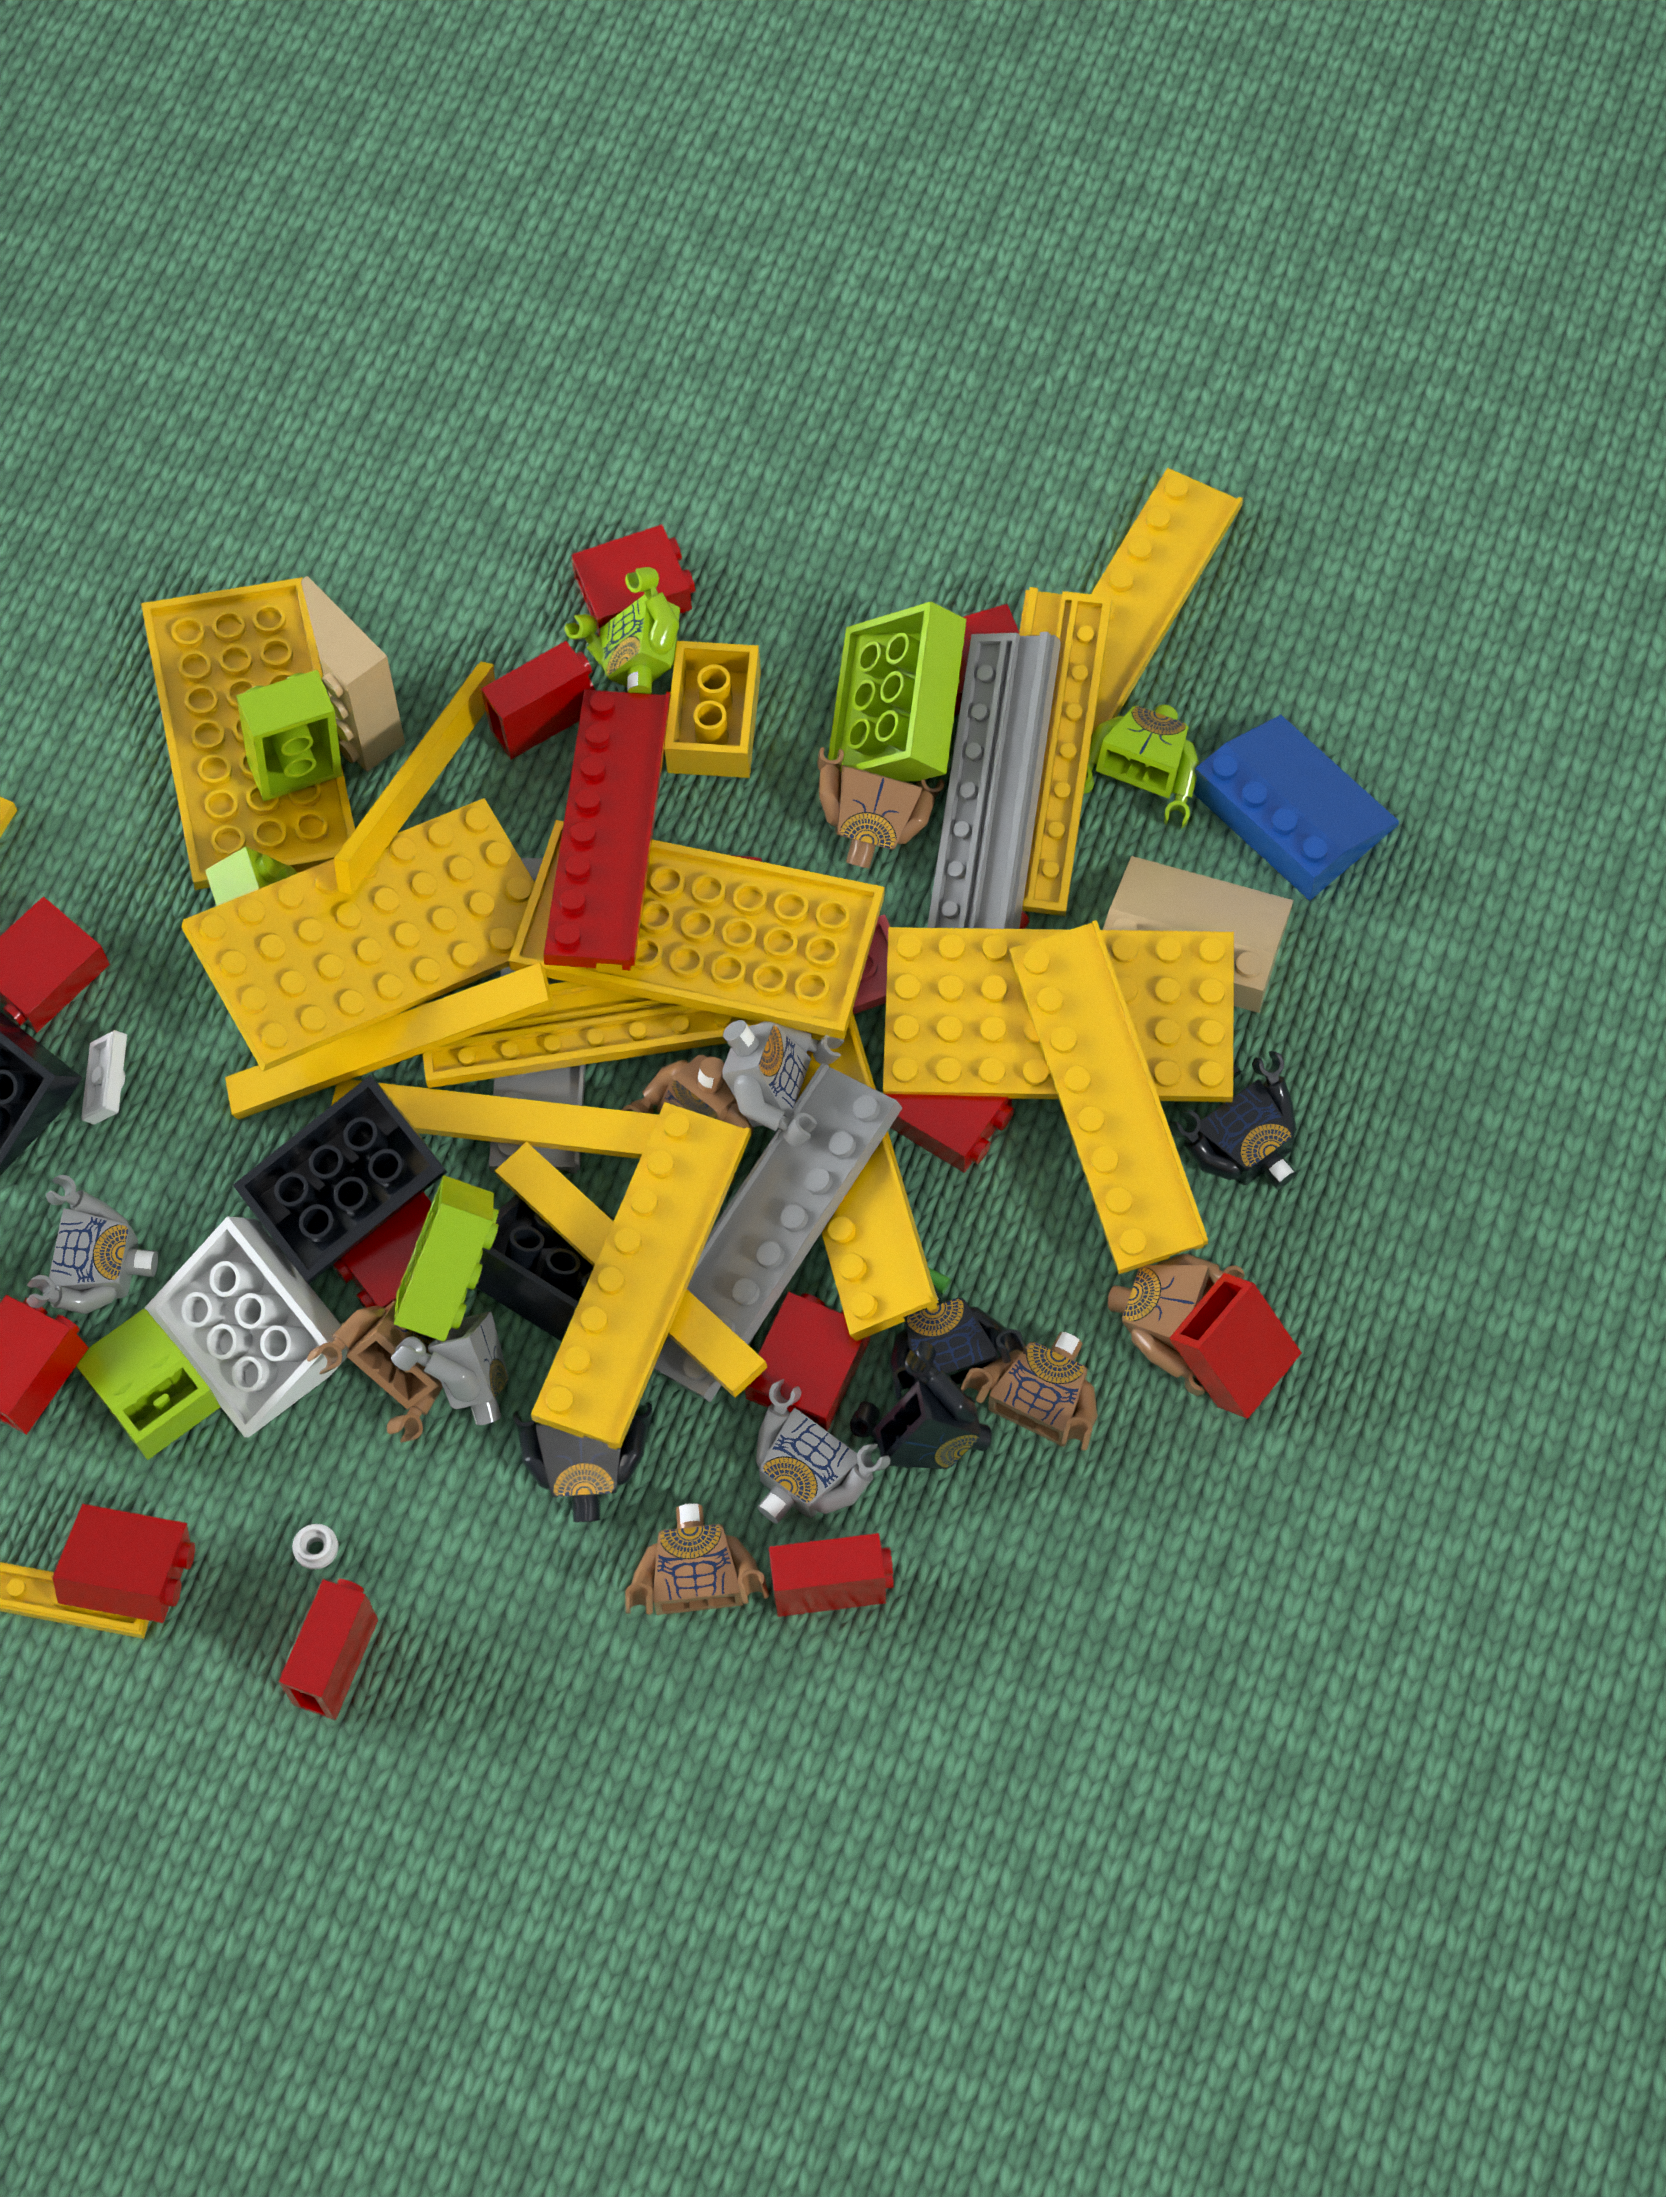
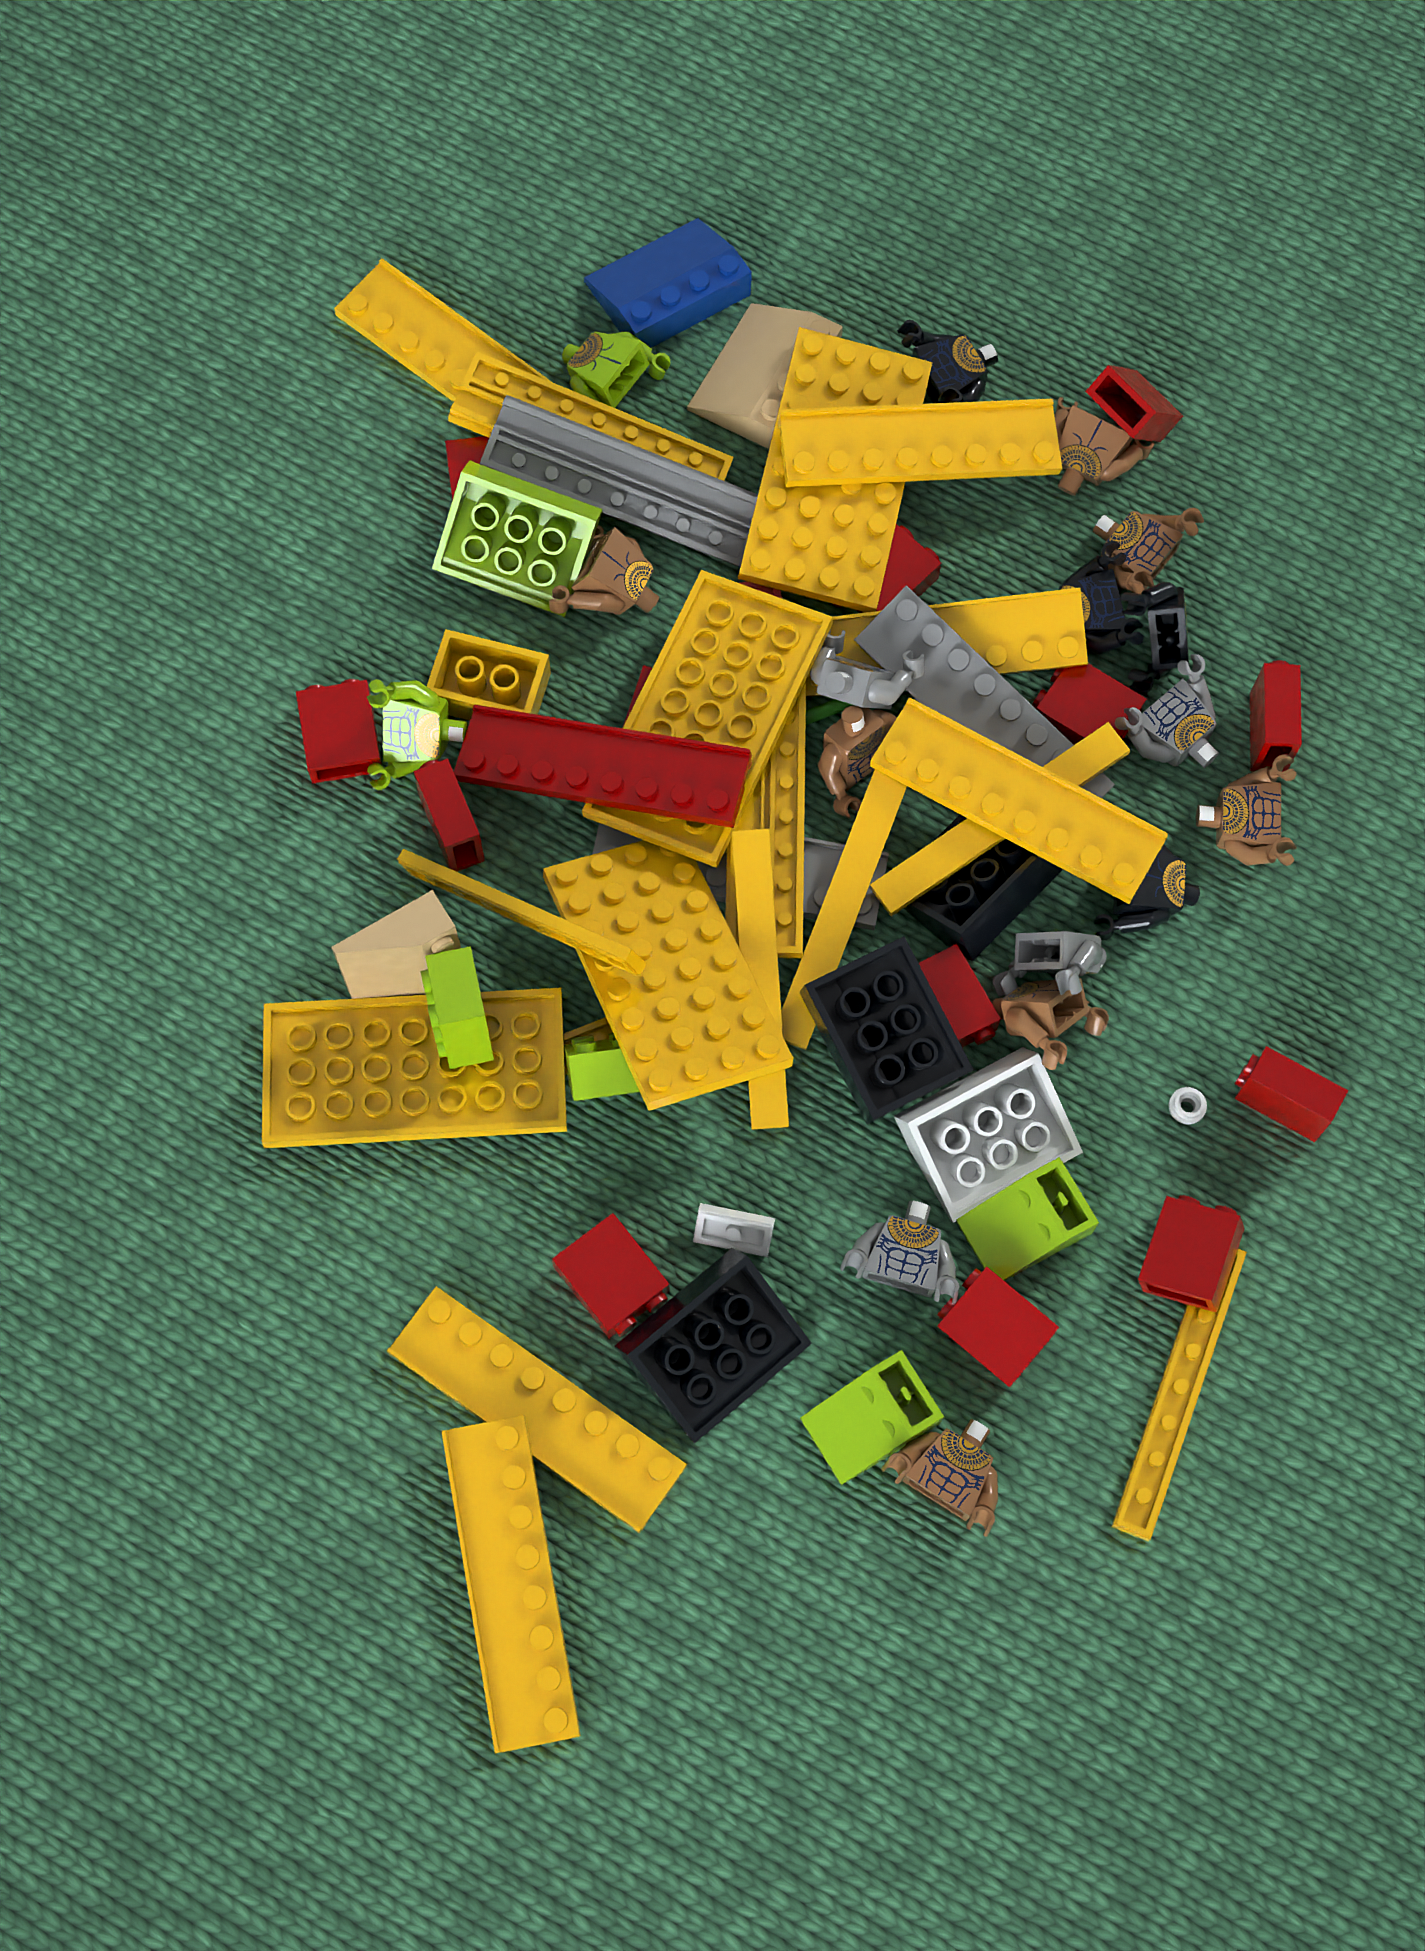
camera: 85 degrees left, 5 degrees up
(446, 1259) = (991, 941): lime brick -> none

